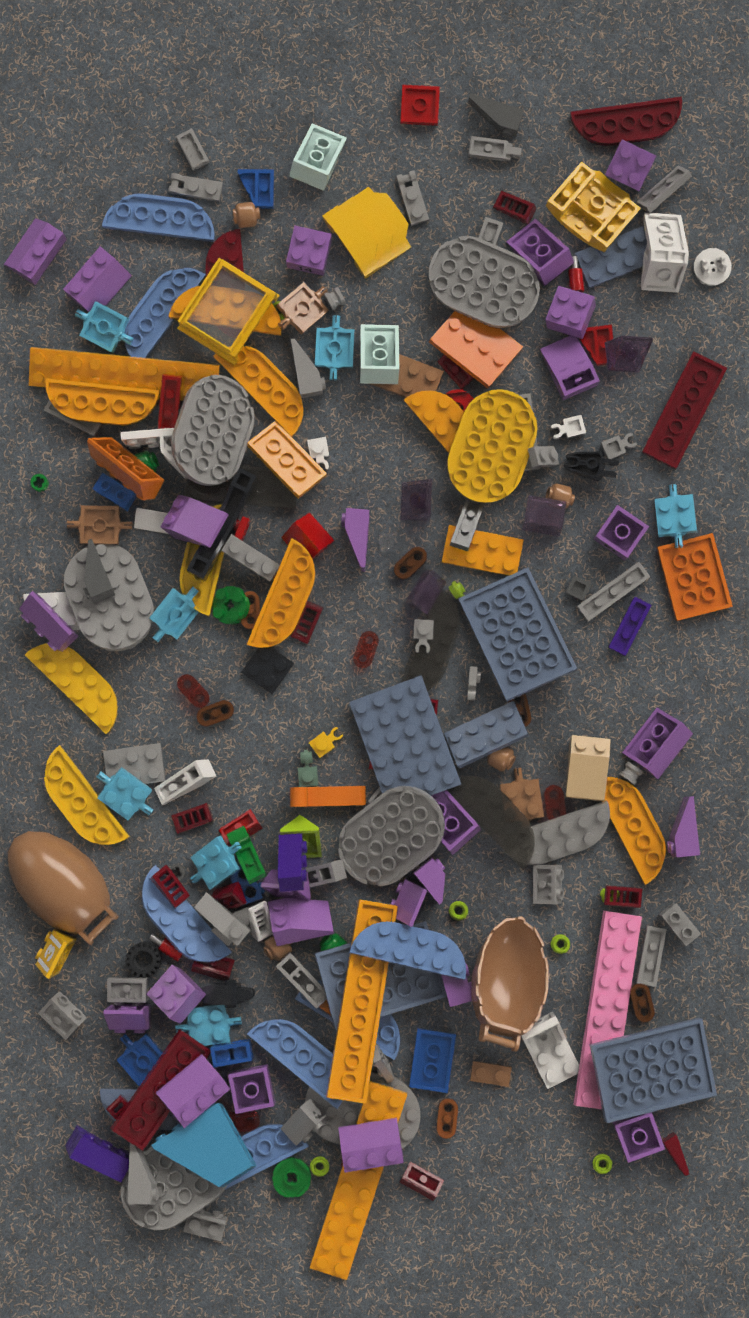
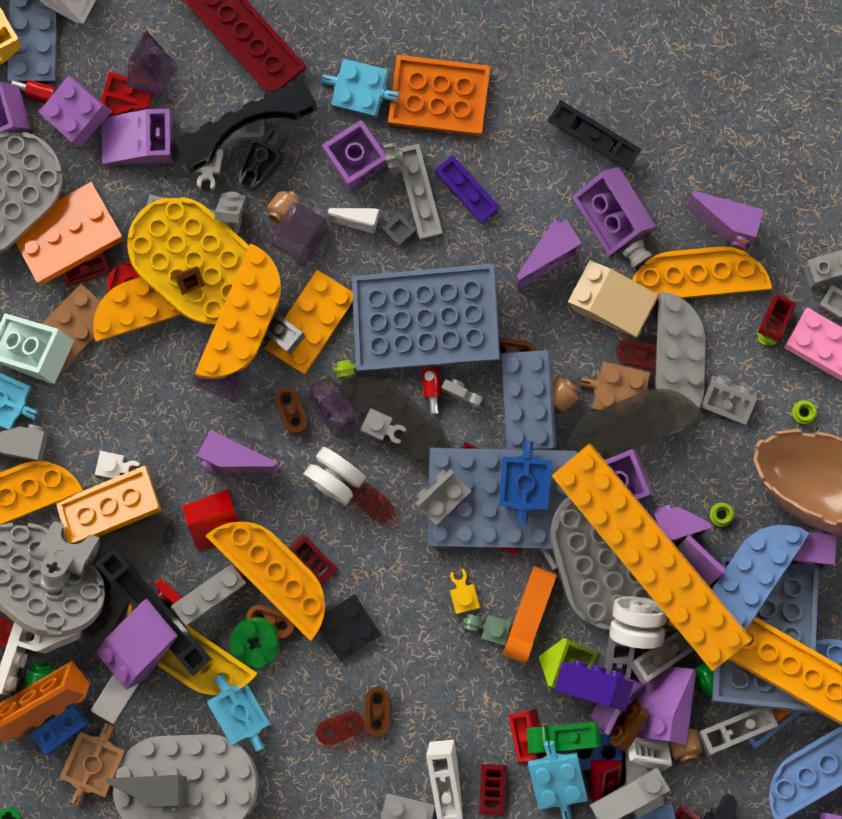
camera: 75 degrees left, 5 degrees down
(234, 443) = (62, 559): none -> light grey piece
(273, 899) = (629, 726): none -> reddish brown plate
(334, 904) = (660, 658): none -> light grey plate
(351, 877) = (637, 622): none -> white wheel
(372, 613) = (335, 474): none -> white wheel
(388, 699) = (442, 496): none -> light grey bracket
(400, 868) = (651, 557): none -> light orange plate
(421, 755) = (525, 483): none -> blue plate
(463, 499) = (243, 317): none -> light orange plate
(468, 659) = (432, 387): none -> red piece
(474, 449) = (189, 280): none -> reddish brown slope
(574, 555) = (357, 218): none -> white slope
(580, 416) = (289, 103): none -> black arch
(607, 708) = (552, 250): none -> medium lavender slope
(630, 562) = (394, 157): none -> light grey plate
(709, 706) = (594, 135): none -> black hinge

